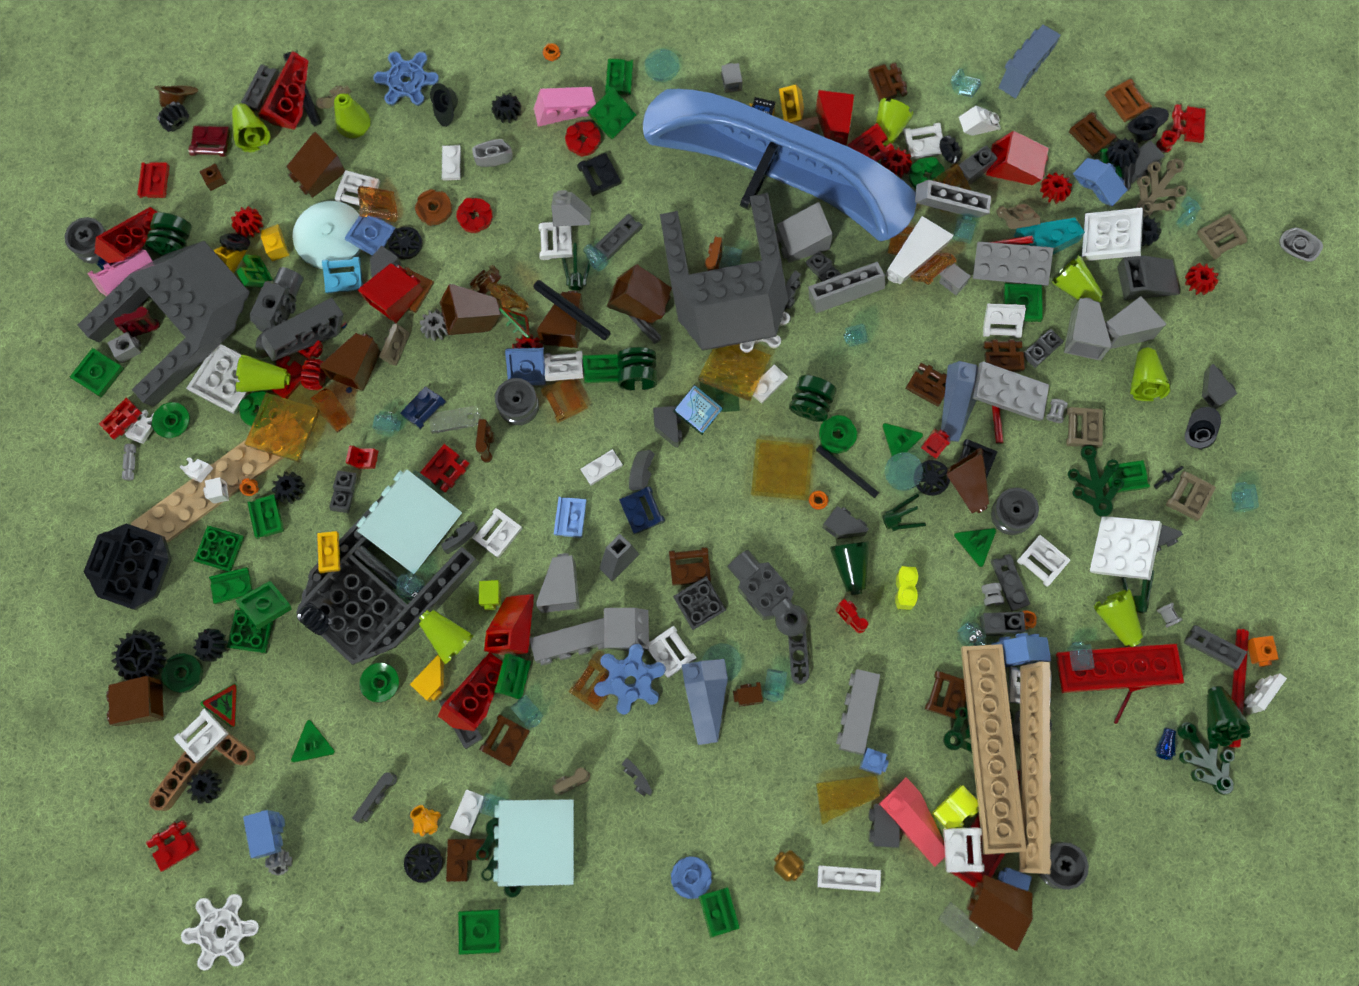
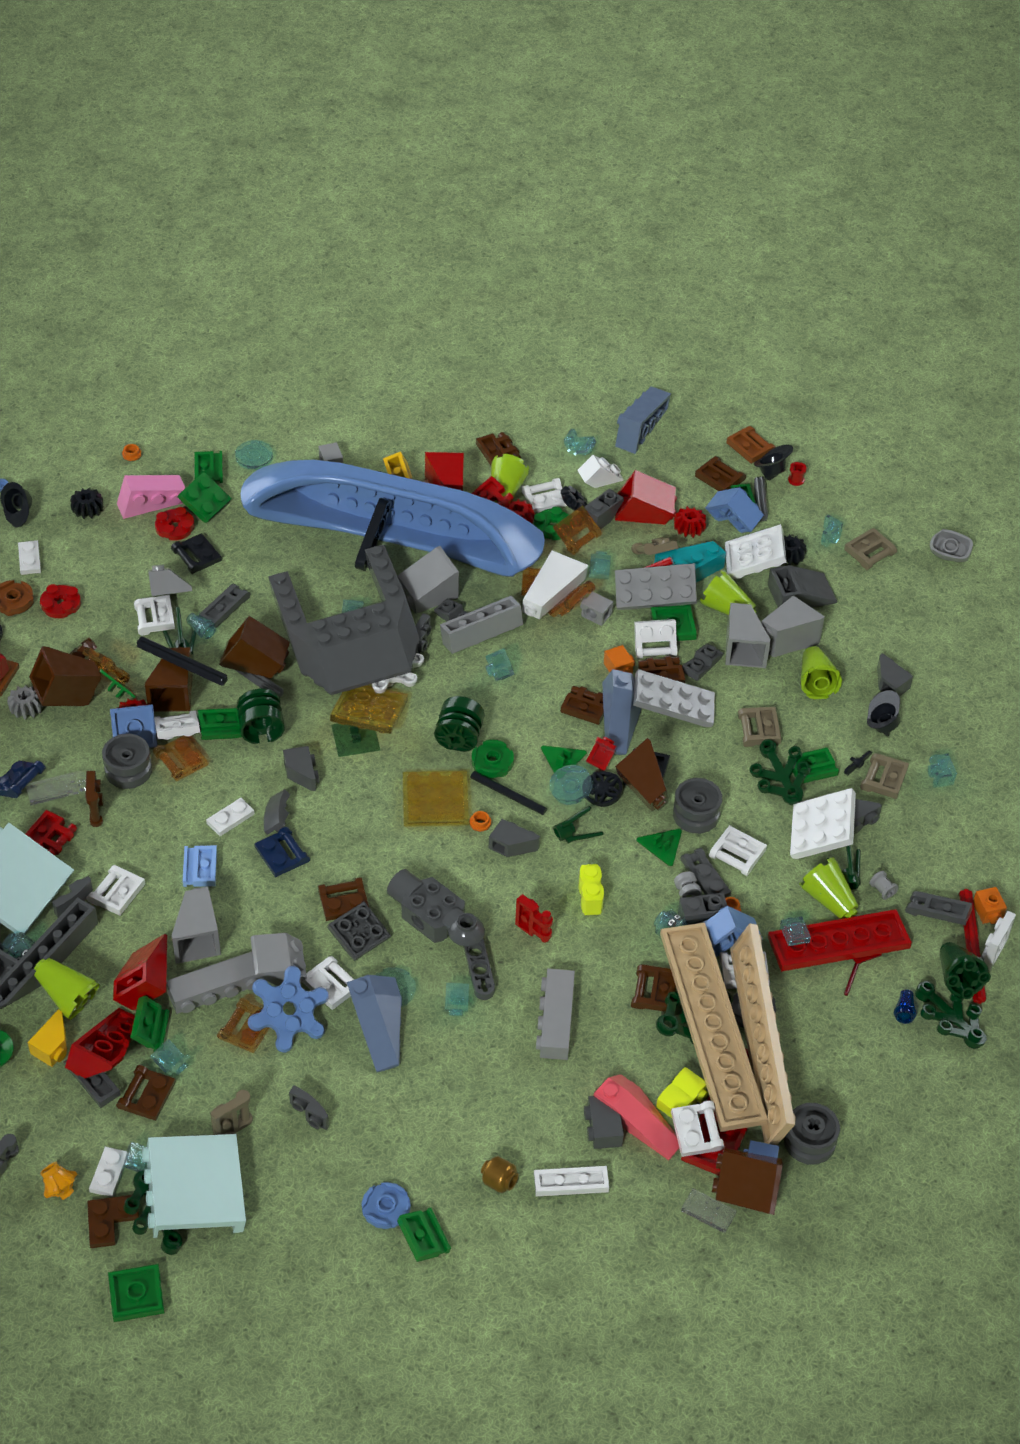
camera: 15 degrees left, 25 degrees down
(423, 863) = (59, 1231): black wheel -> none
(490, 594) = (114, 947): lime brick -> none
(492, 153) = (75, 543): light grey piece -> none
(617, 557) = (260, 894): dark grey slope -> none
(698, 409) = (333, 749): piece -> none
(715, 254) = (333, 602): dark orange plate -> none
(748, 695) = (428, 1012): reddish brown brick -> none
(769, 383) = (409, 721): white plate -> none
(843, 795) = (553, 1098): clear yellow wing -> none
(852, 565) = (526, 870): dark green cone -> none
(874, 762) = (581, 1059): medium blue brick -> none
(952, 199) = (581, 534): light grey brick -> none
(966, 342) = (619, 659): none -> orange brick
(997, 424) = (665, 732): red bar -> none
(1060, 405) = (724, 714): light grey bush -> none
(1123, 152) = (753, 482): black gear -> none
(1148, 154) = (778, 491): dark grey slope -> none
(1157, 189) = (796, 514): dark tan plant -> none
(1194, 123) = (822, 456): red plate -> none
(1194, 278) = (856, 585): red gear -> none

